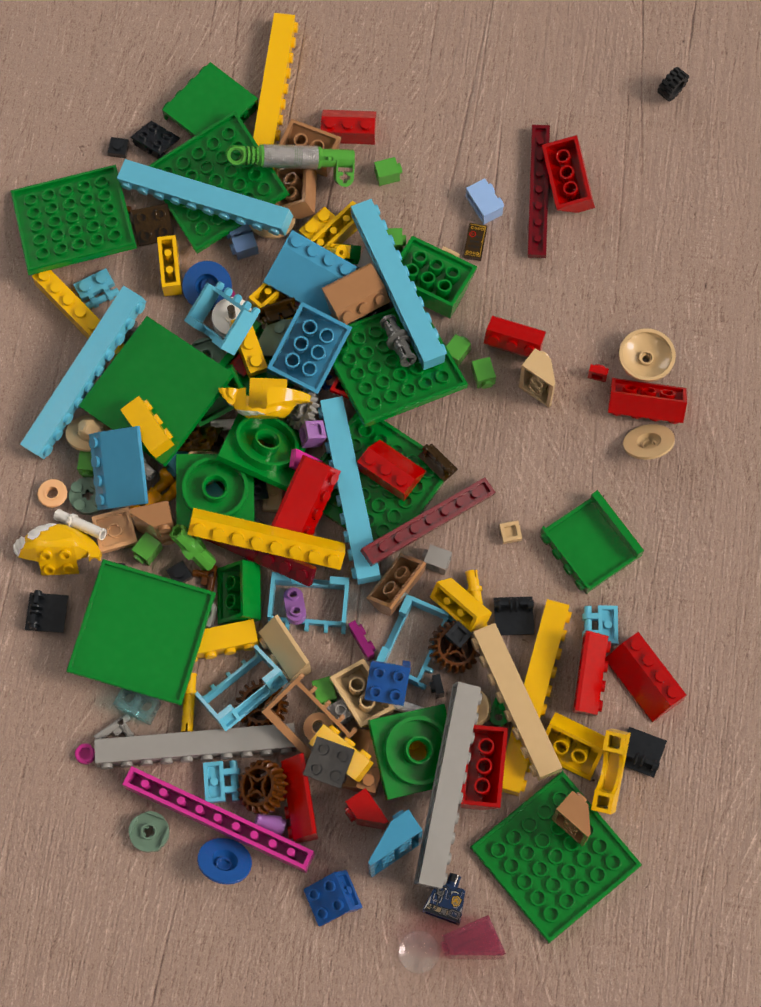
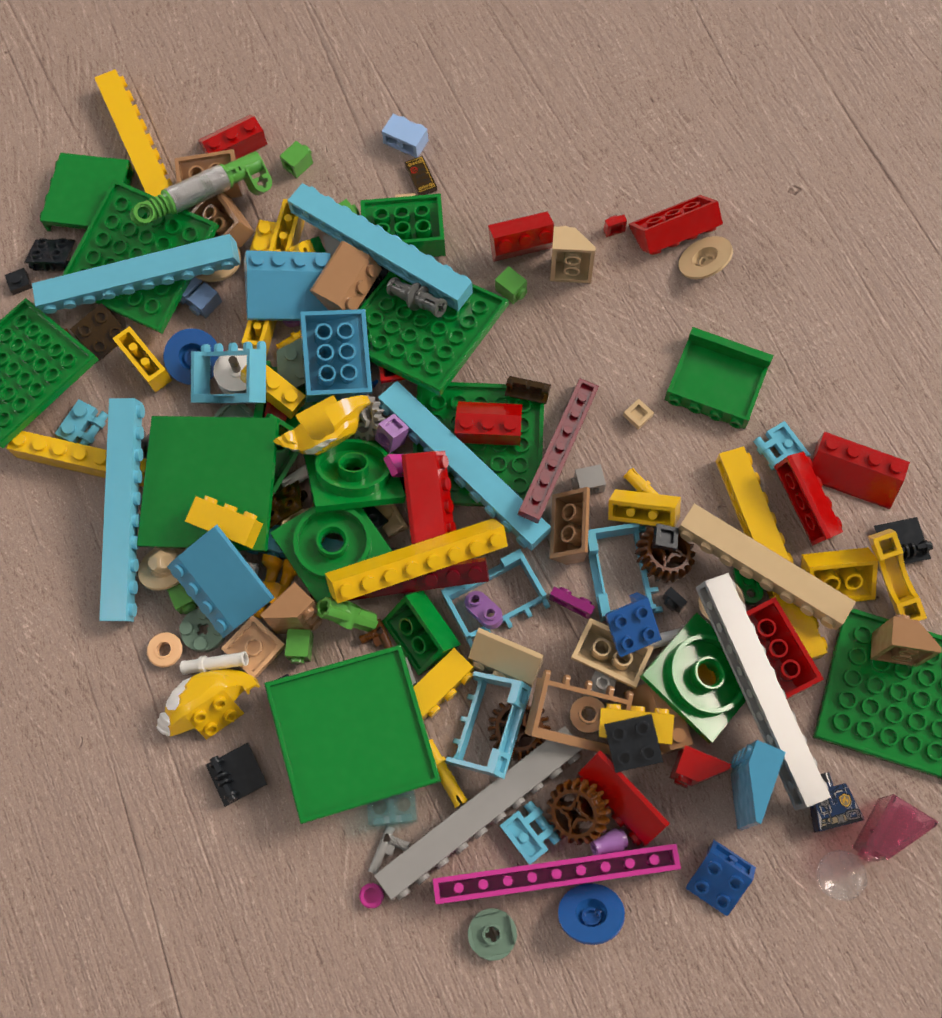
camera: 30 degrees left, 0 degrees up
(179, 572) = (347, 648): black plate -> none
(270, 313) = (283, 332): dark brown hinge -> none
(325, 690) = (576, 672): bright green brick -> none
(459, 348) = (474, 273): bright green brick -> none
(514, 615) = (696, 487): black hinge -> none
(538, 193) = (448, 101): dark red plate -> none
(568, 175) = (467, 69): red slope -> none
(649, 345) = (651, 175): tan dish -> none

